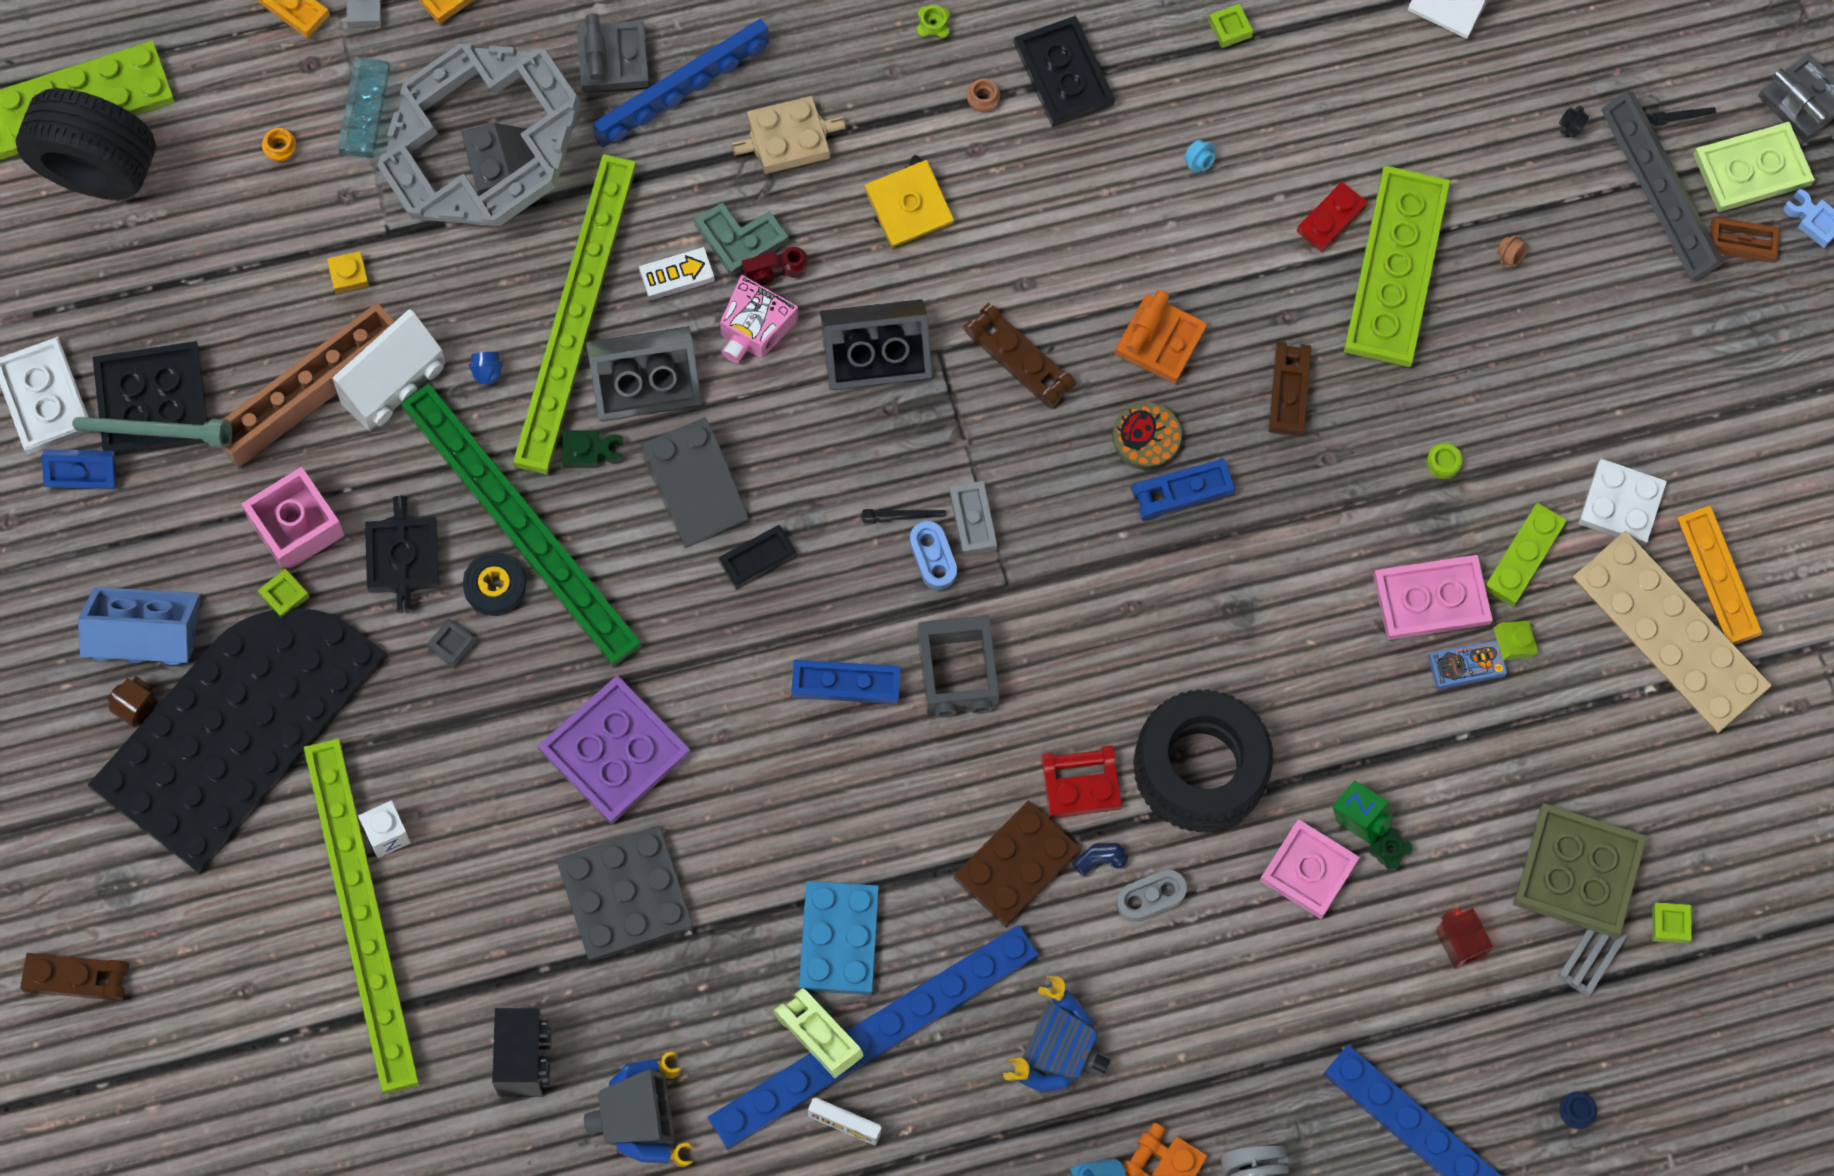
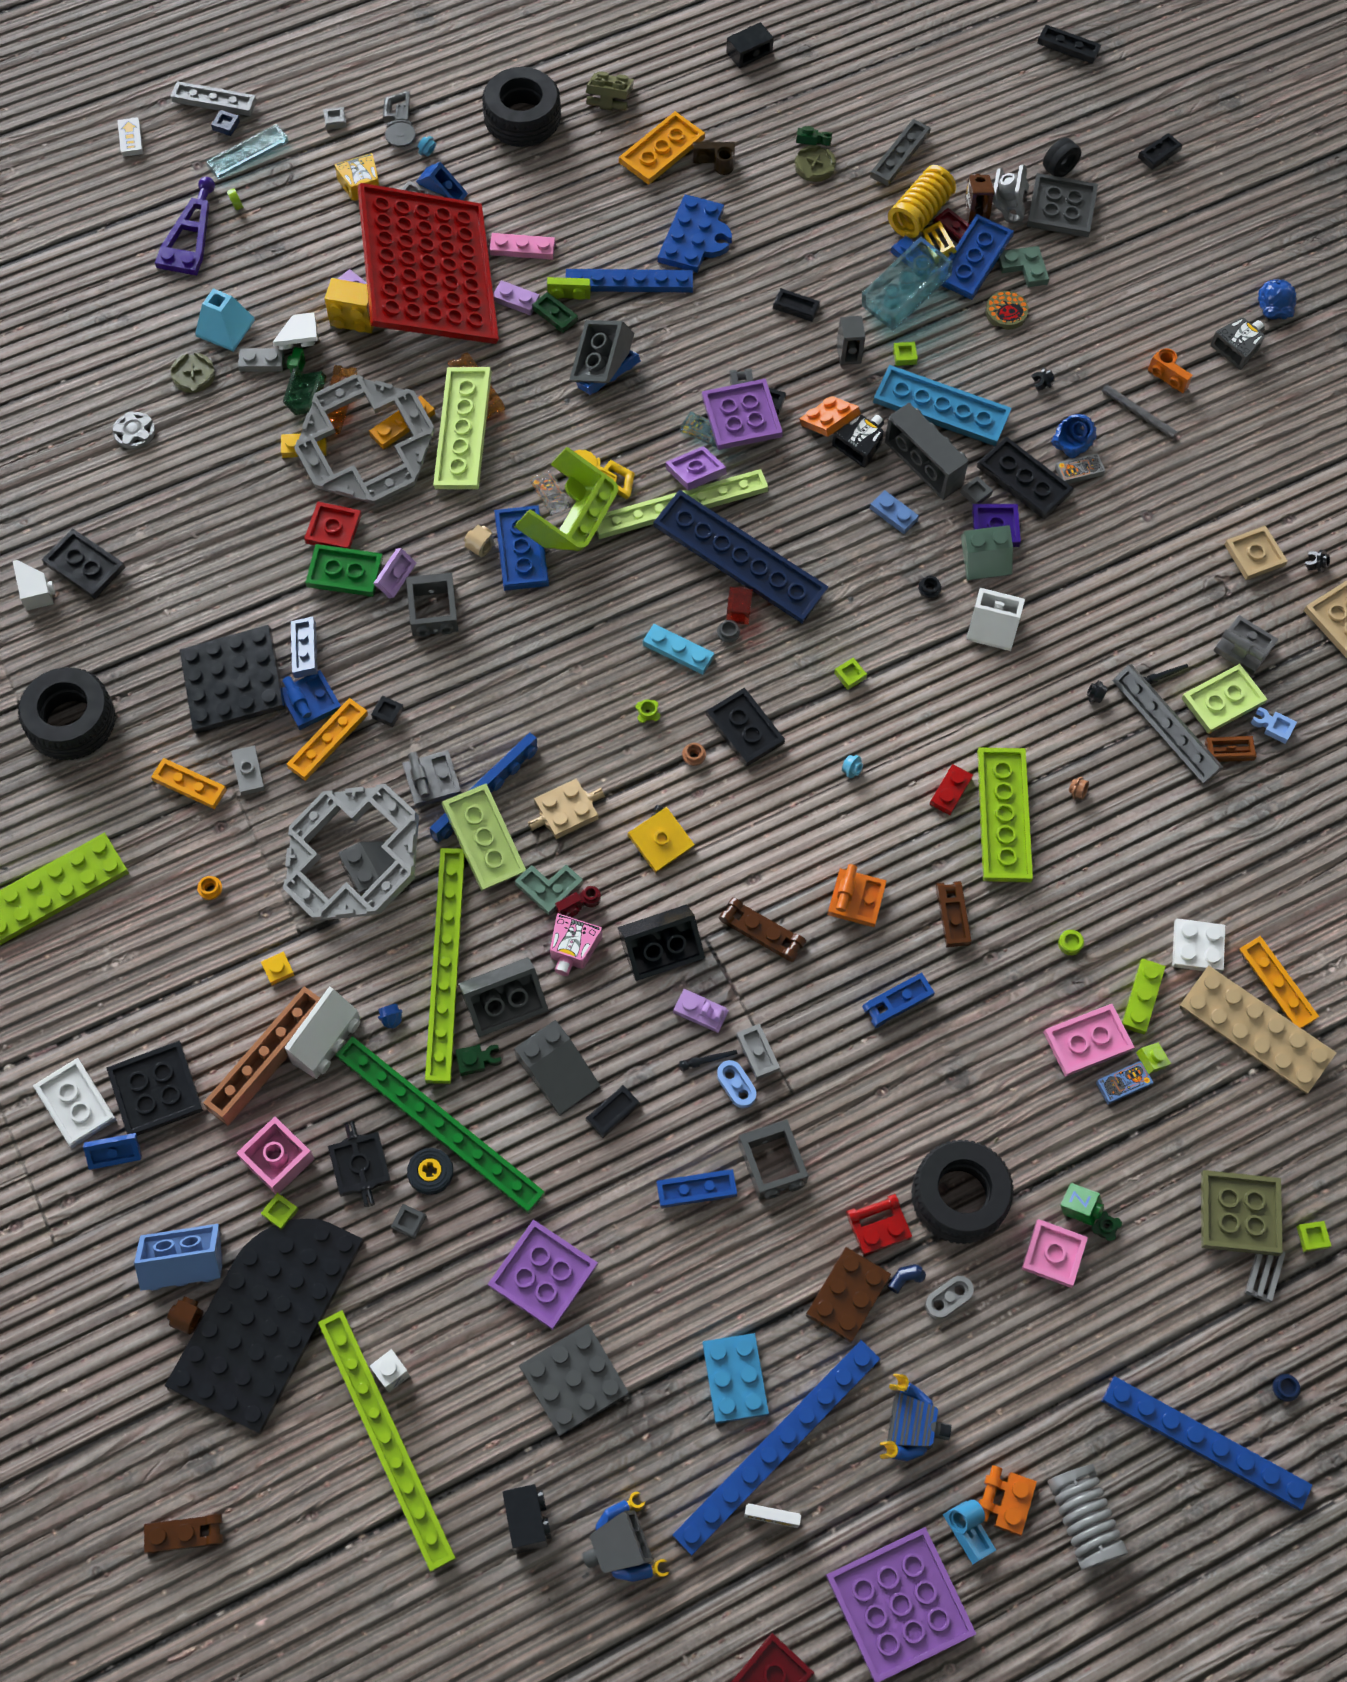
camera: 10 degrees left, 5 degrees down
(85, 144) = (72, 916): black tyre -> none
(215, 433) = (206, 1105): sand green piece -> none
(364, 107) = (264, 849): clear light blue plate -> none
(664, 150) = (483, 837): none -> yellowish green plate
(676, 274) = (510, 921): white tile -> none
(819, 1033) = (739, 1454): yellowish green plate -> none
(908, 447) = (700, 1010): none -> lavender plate
(1146, 435) = (863, 967): tile -> none
(1463, 937) = (1174, 1278): clear red brick -> none

